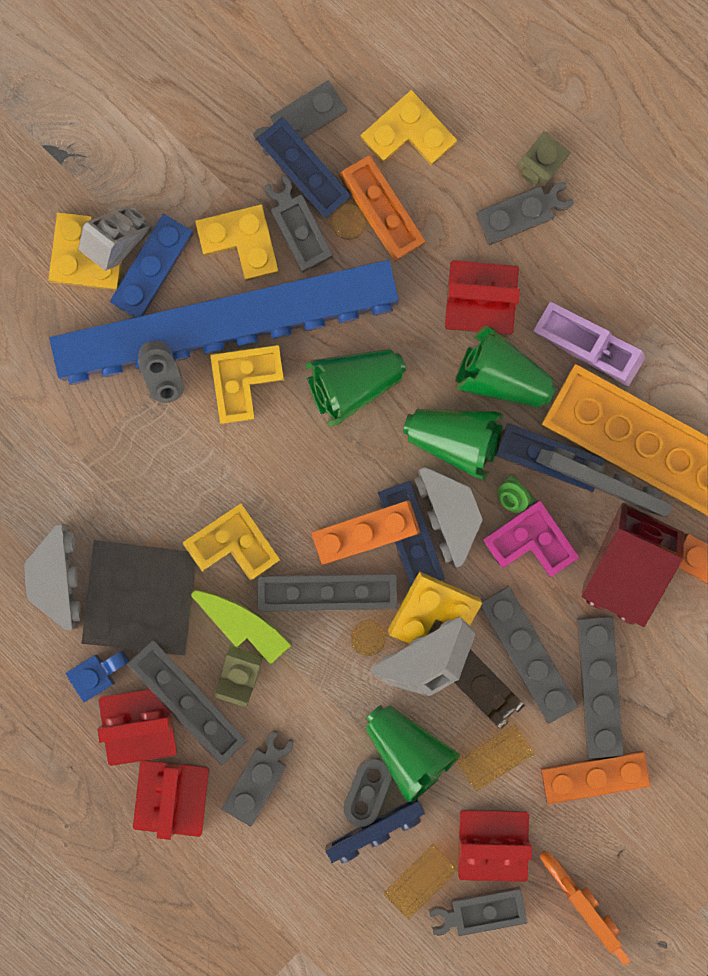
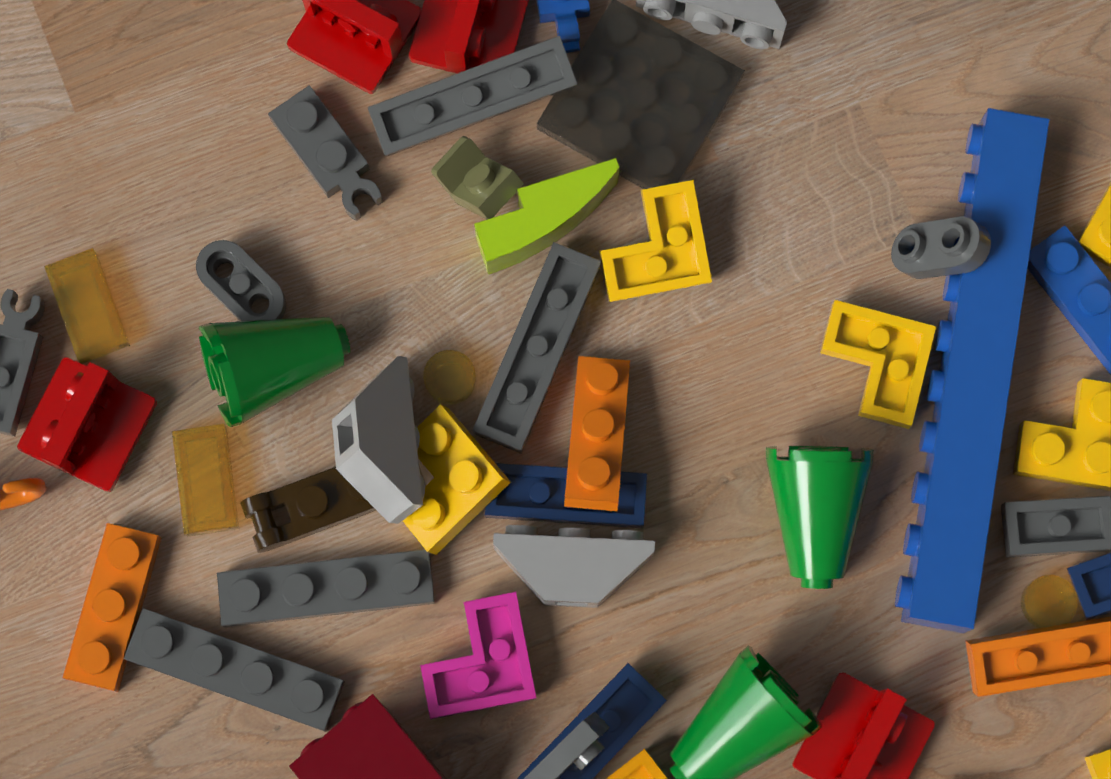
camera: 115 degrees right, 10 degrees down
(378, 832) = (179, 272): dark blue plate -> none
(457, 437) = (676, 619): green cone -> none
(514, 495) = (559, 667): bright green plate -> none

